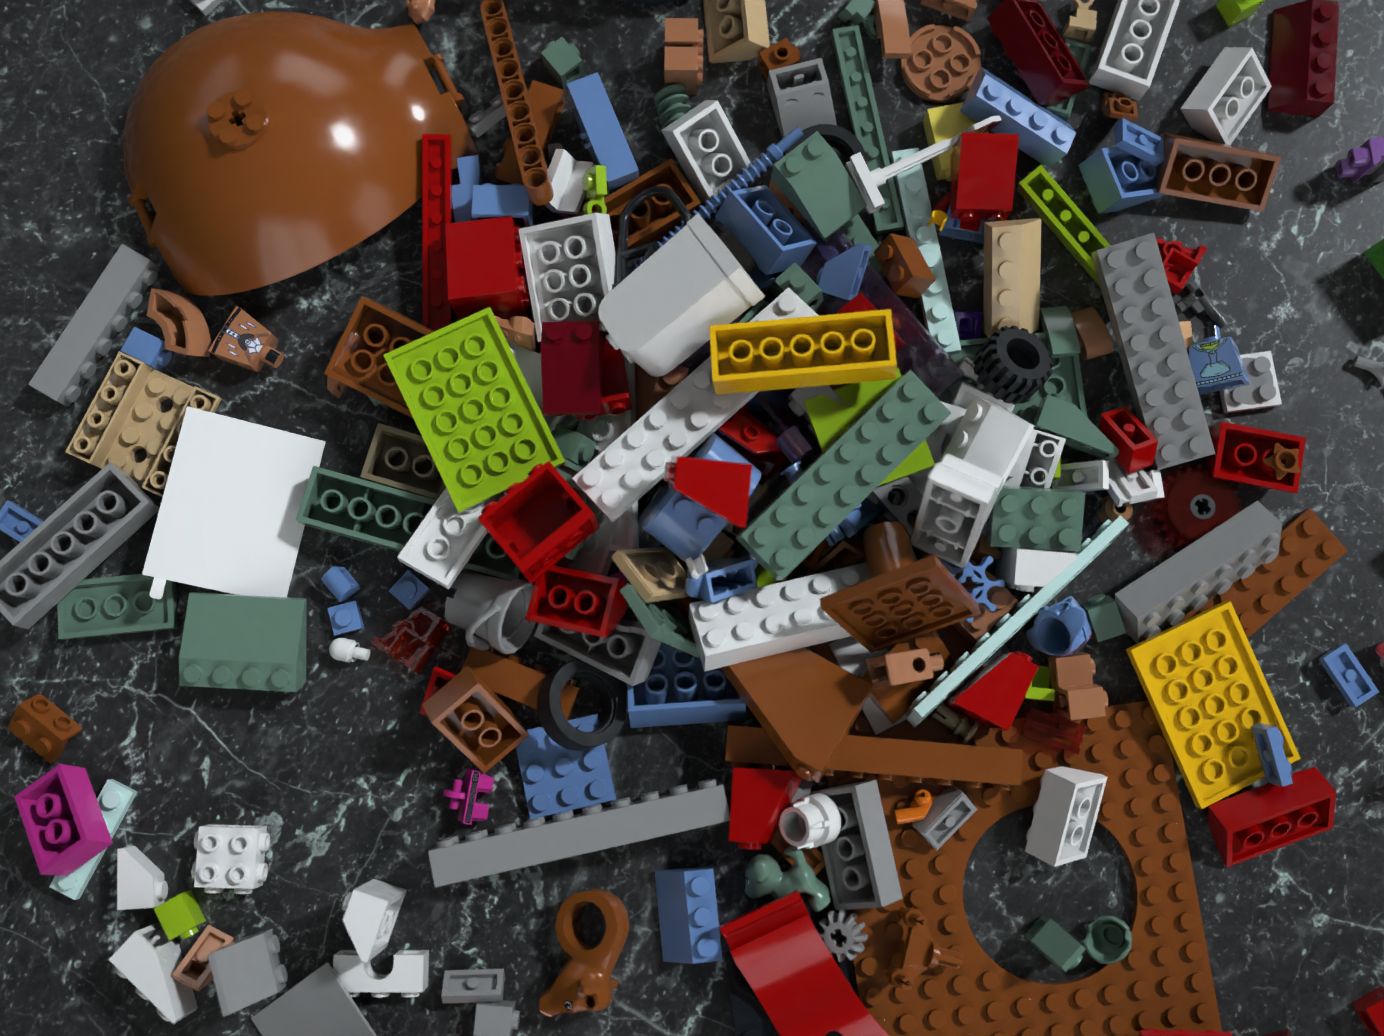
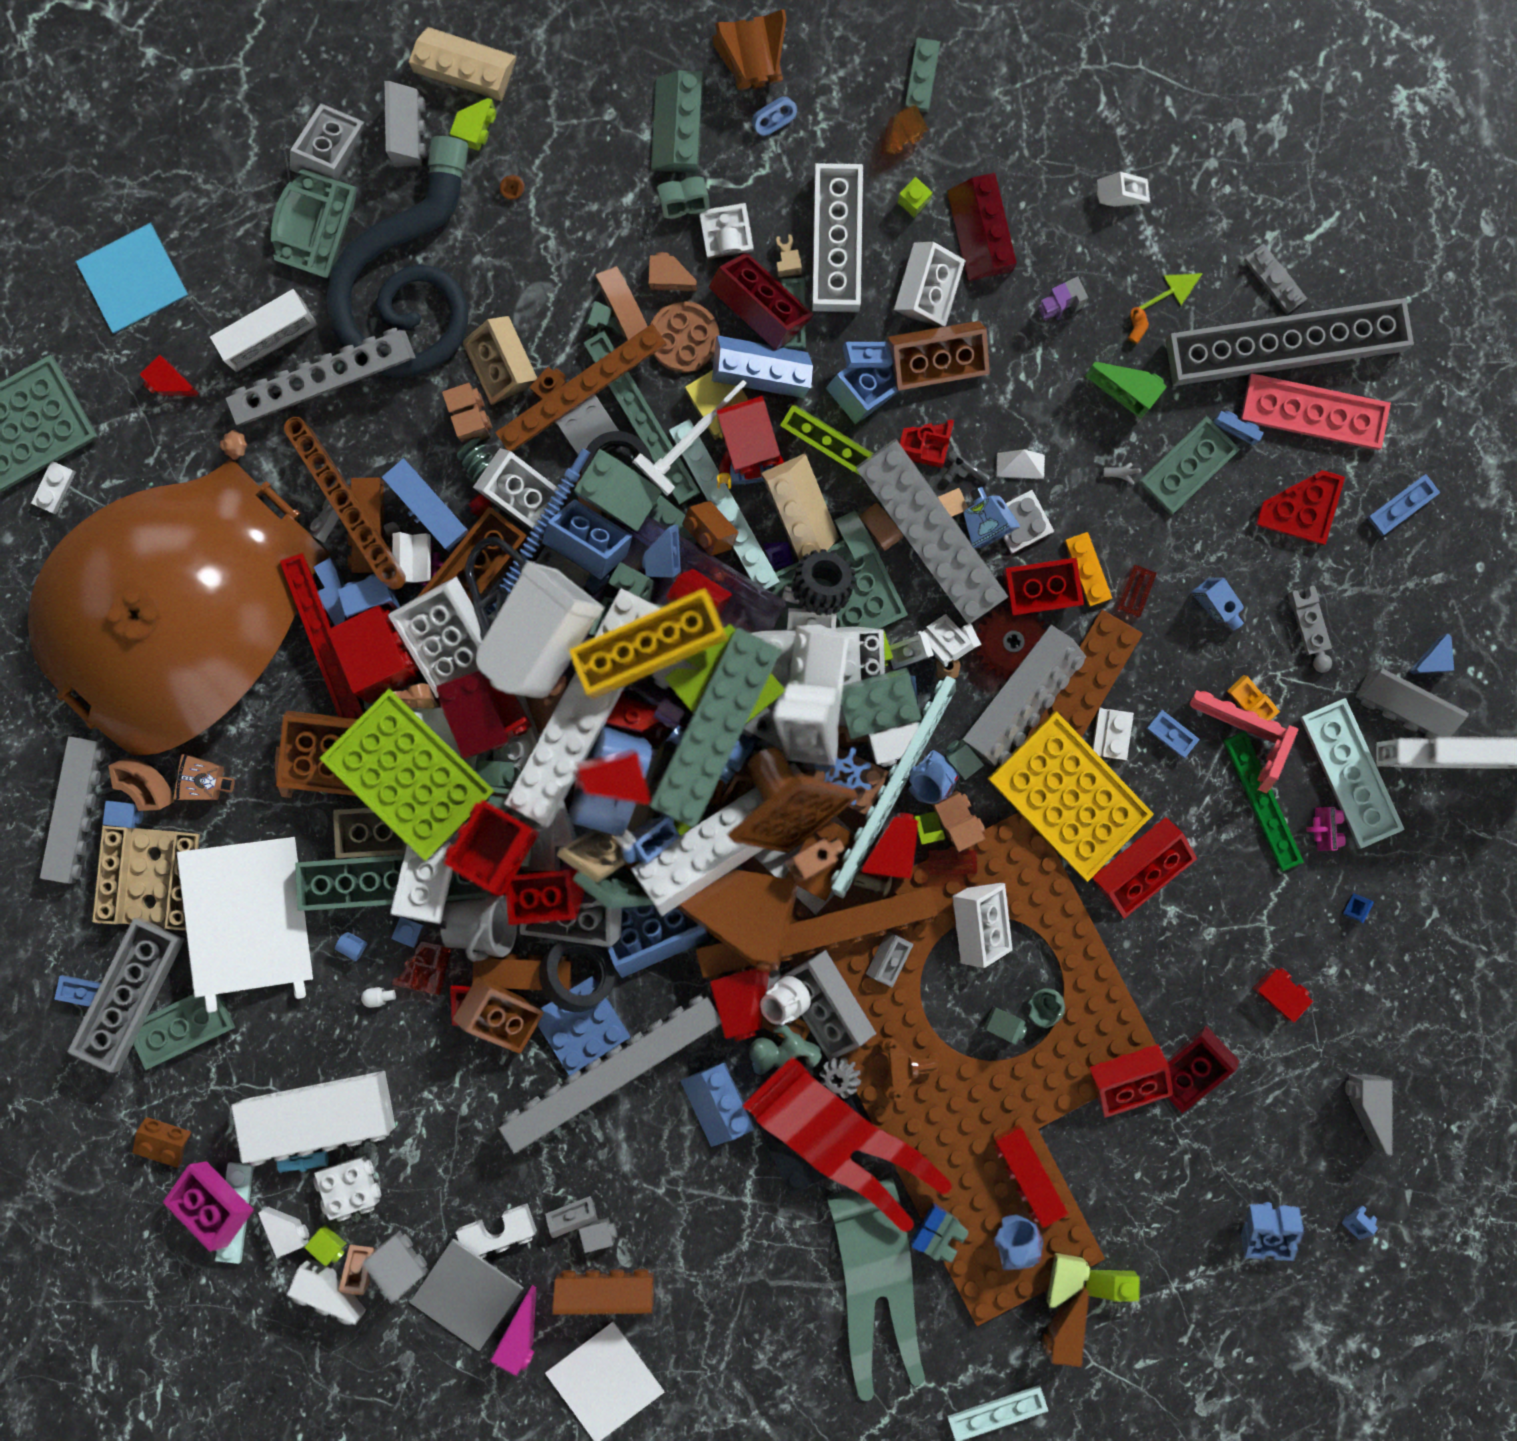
camera: 15 degrees left, 5 degrees up
(192, 808) = (304, 1162): none -> medium azure pin
(222, 762) = (313, 1118): none -> white brick
(244, 642) = (294, 1020): sand green slope -> none
(345, 618) = (365, 972): medium blue plate -> none
(372, 916) = (474, 1191): white slope -> none
(469, 809) = (514, 1064): dark pink hips -> none
(562, 61) = (369, 449): sand green brick -> none
(585, 977) = (654, 1176): dark orange animal -> none
(595, 185) = (437, 556): lime plate -> none
(658, 156) = (479, 505): none -> red plate
(817, 68) = (581, 388): none -> dark orange plate
(917, 810) = (867, 961): orange arm -> none
(1067, 421) = (883, 613): sand green slope -> none
(1119, 106) = (842, 327): dark orange slope -> none
(1130, 437) = (936, 608): red brick -> none
(1265, 319) = (1020, 464): none -> white slope
(1272, 755) = (1132, 827): medium blue plate -> none
(1279, 650) = (1112, 733): none -> white plate
(1290, 457) = (1067, 577): dark orange plate -> none
(1311, 478) = (1091, 575): none -> light orange plate
(1338, 519) = (1129, 610): none -> clear red tile

